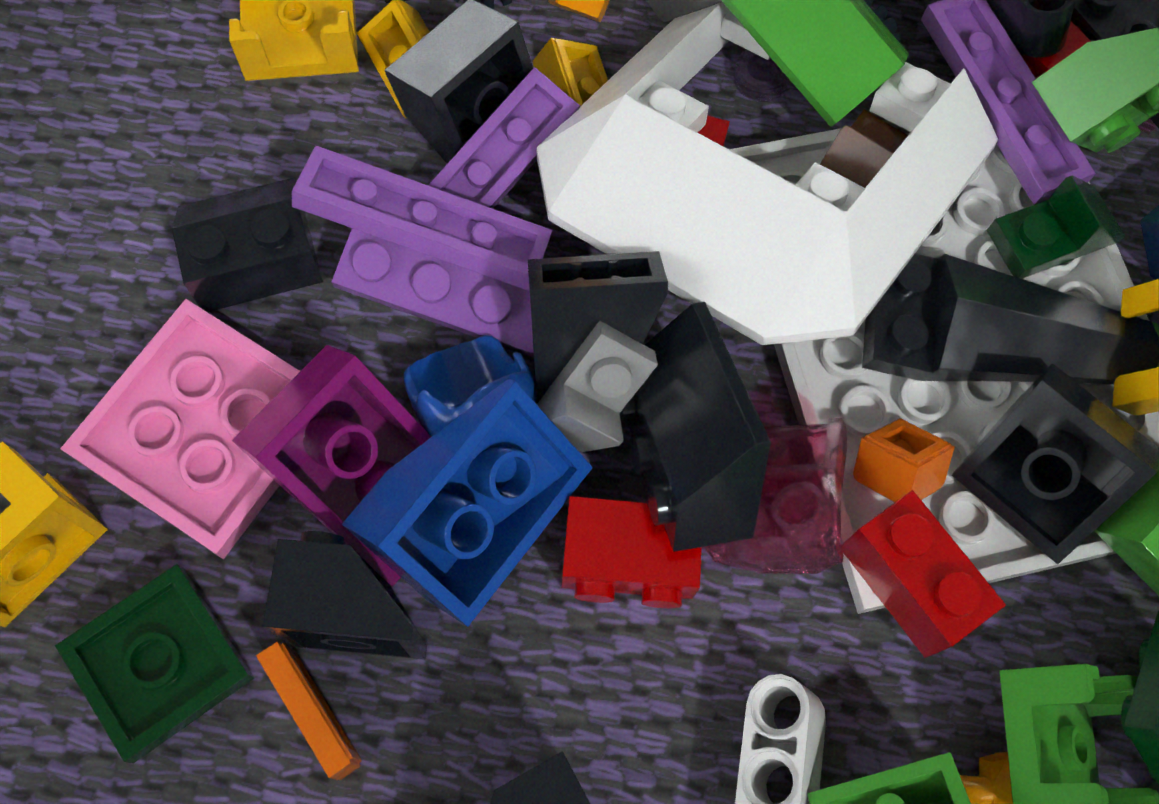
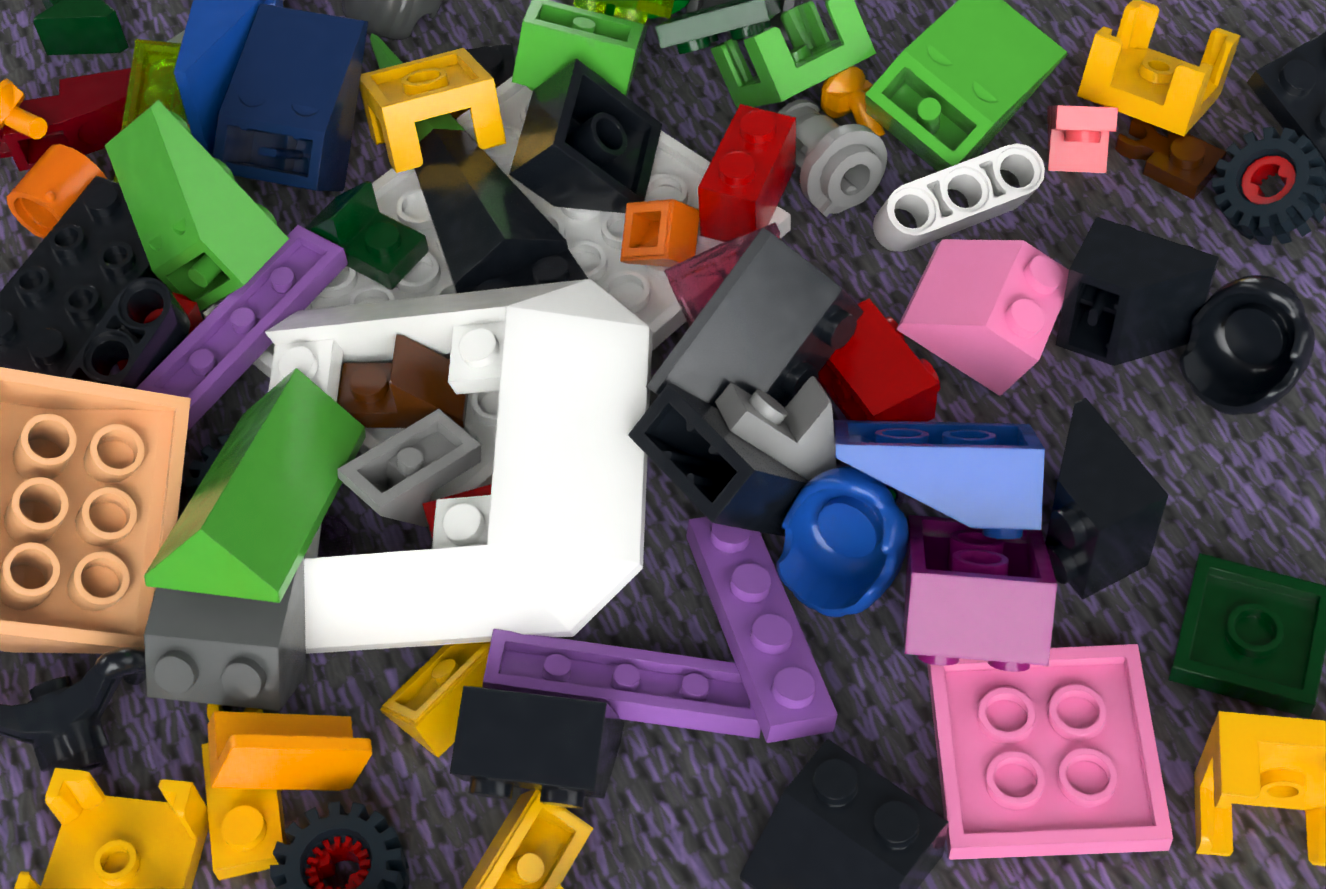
camera: 115 degrees left, 15 degrees down
(309, 710) = (1181, 497): orange tile -> none
(419, 217) = (721, 677): medium lavender plate -> none
(619, 692) = (986, 307): none -> bright pink slope
(766, 118) = (410, 466): none -> light grey slope
(896, 696) = (836, 161): none -> light grey piece

